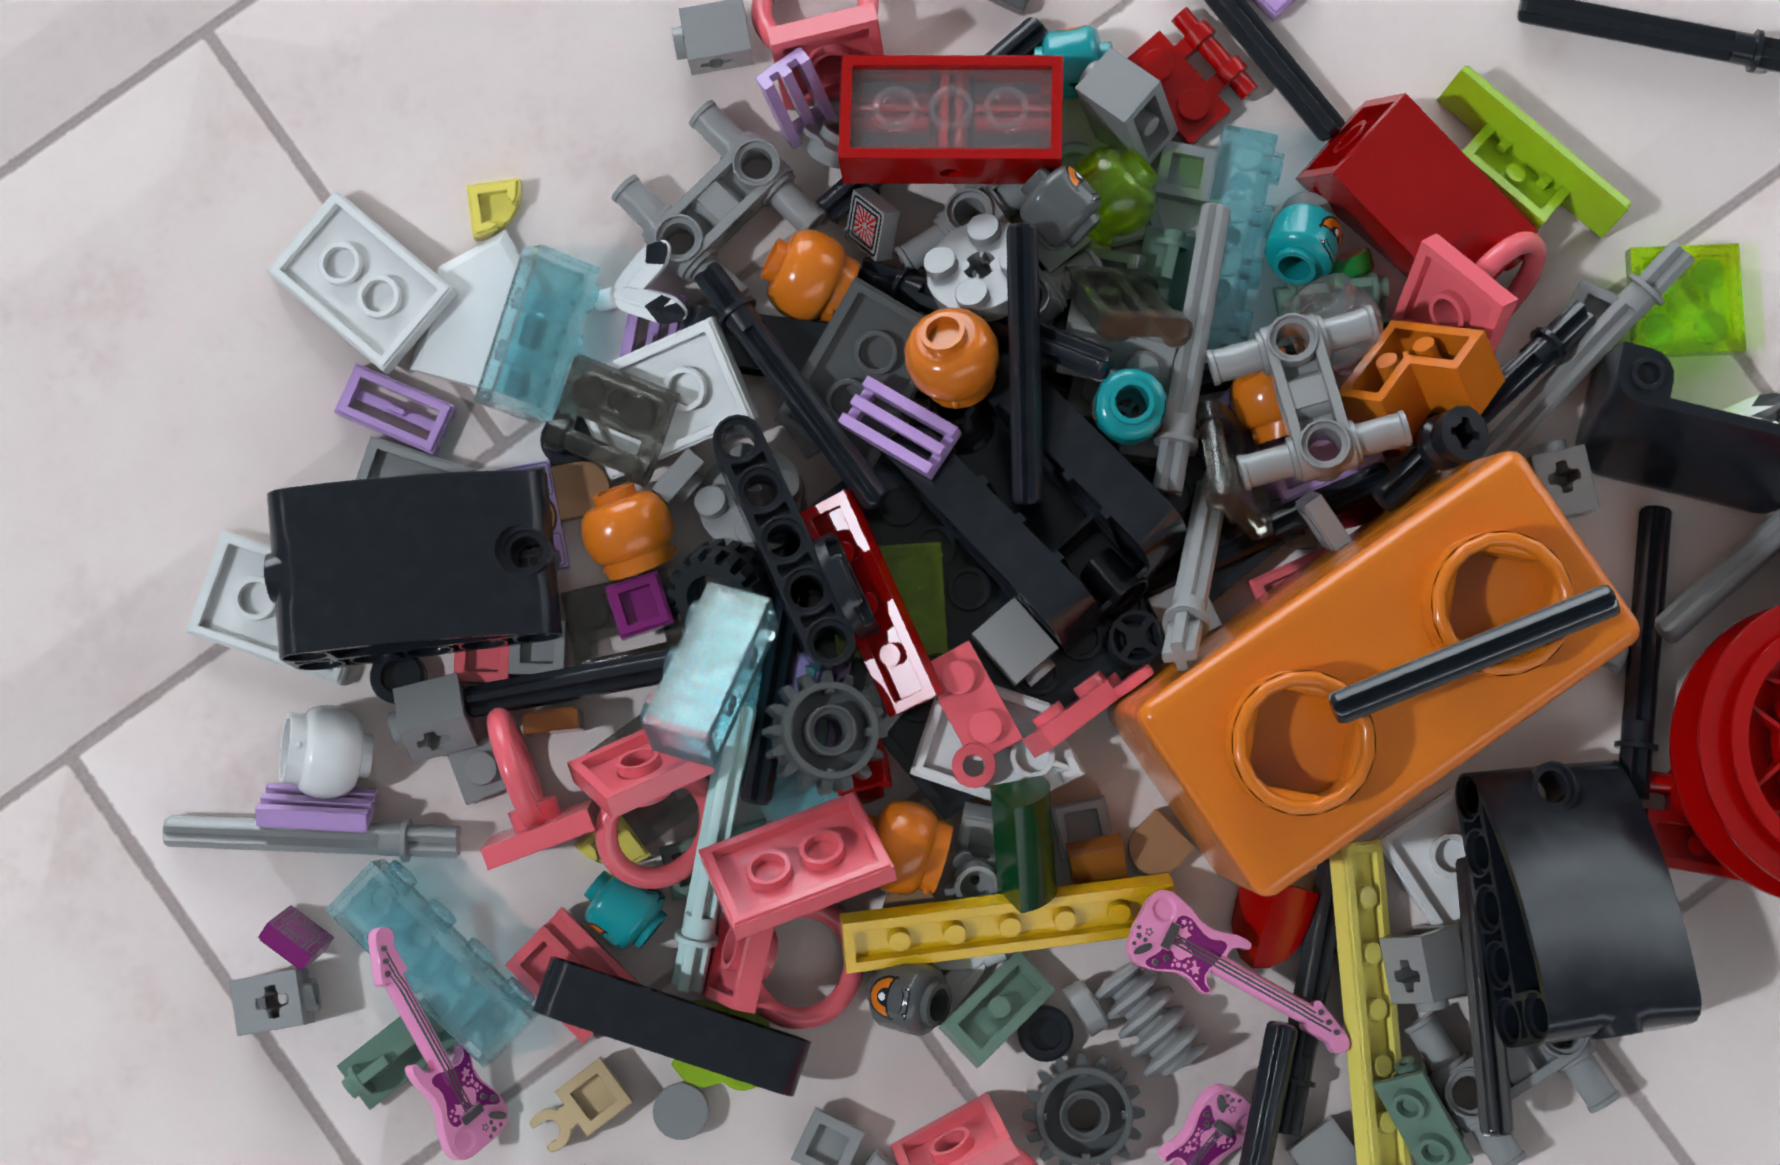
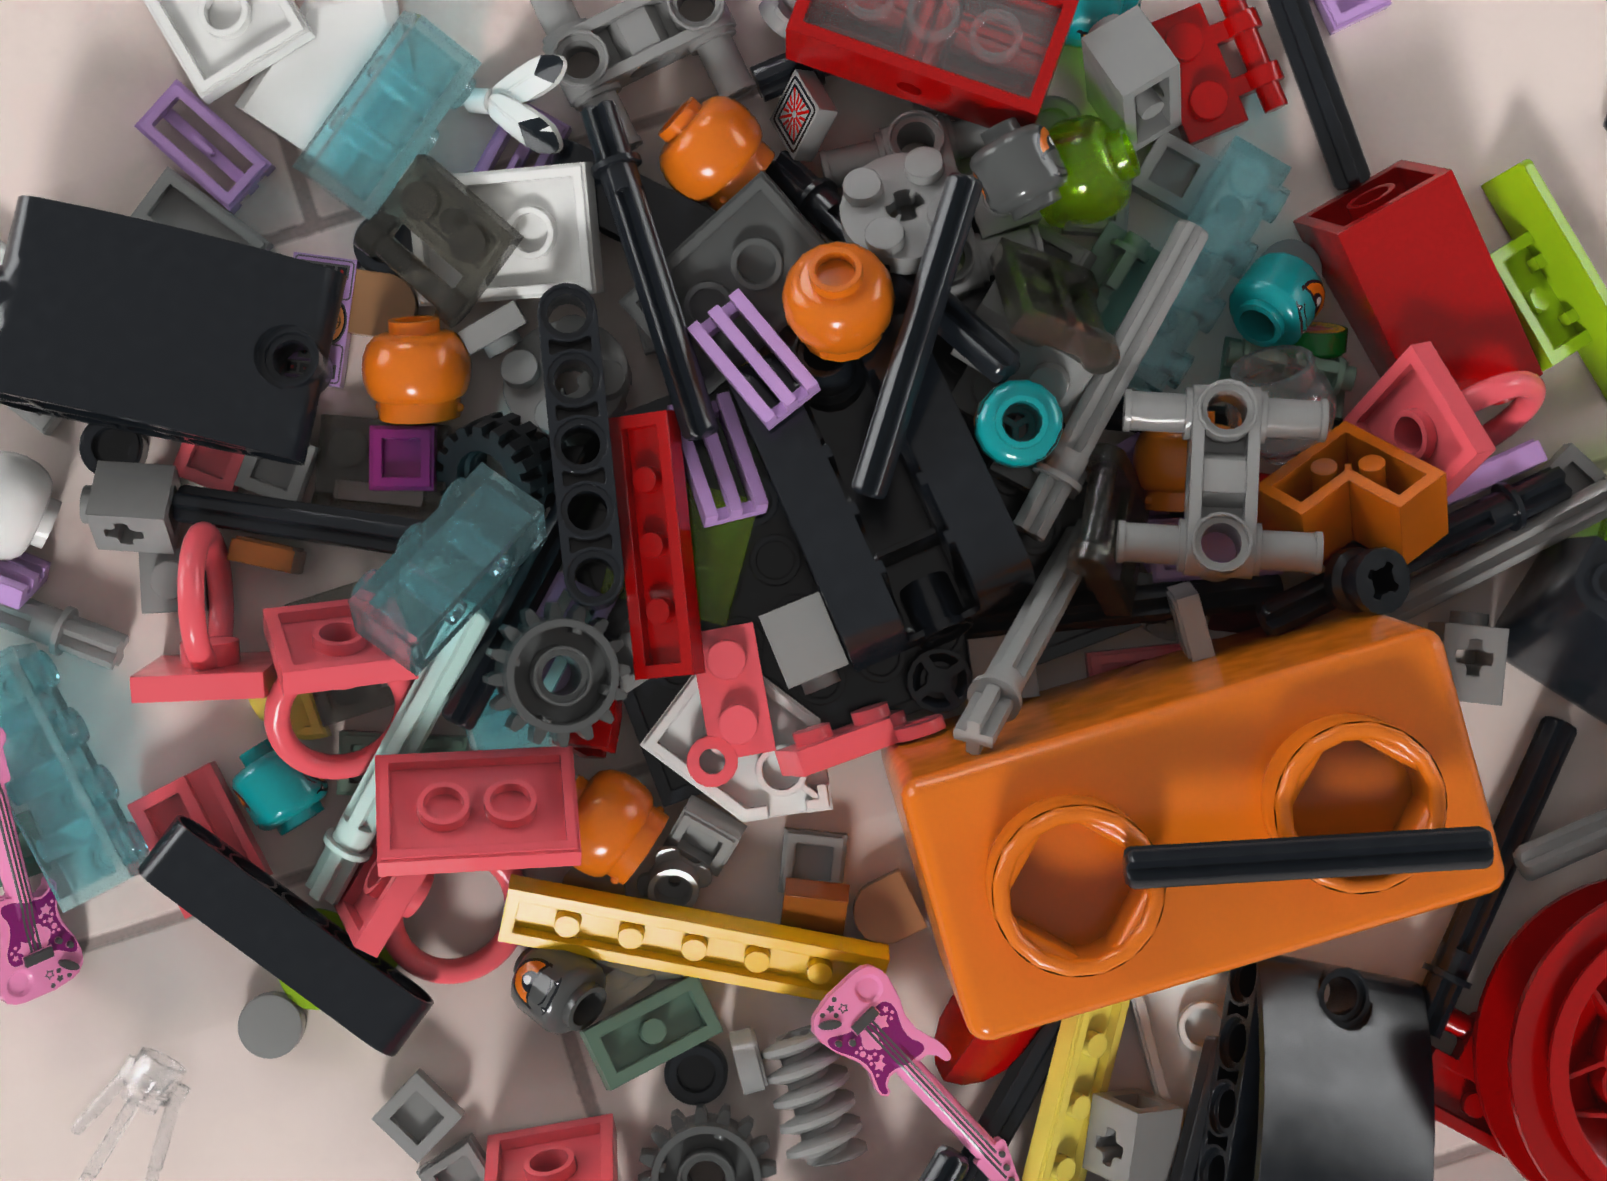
camera: 15 degrees right, 5 degrees up
(588, 1100) = (171, 982): tan plate -> none
(845, 585) = (632, 517): black tile -> none
(920, 517) = (747, 471): none -> lavender tile
(1024, 842) = (739, 865): dark green brick -> none
(1534, 315) = (1500, 468): none -> lavender tile

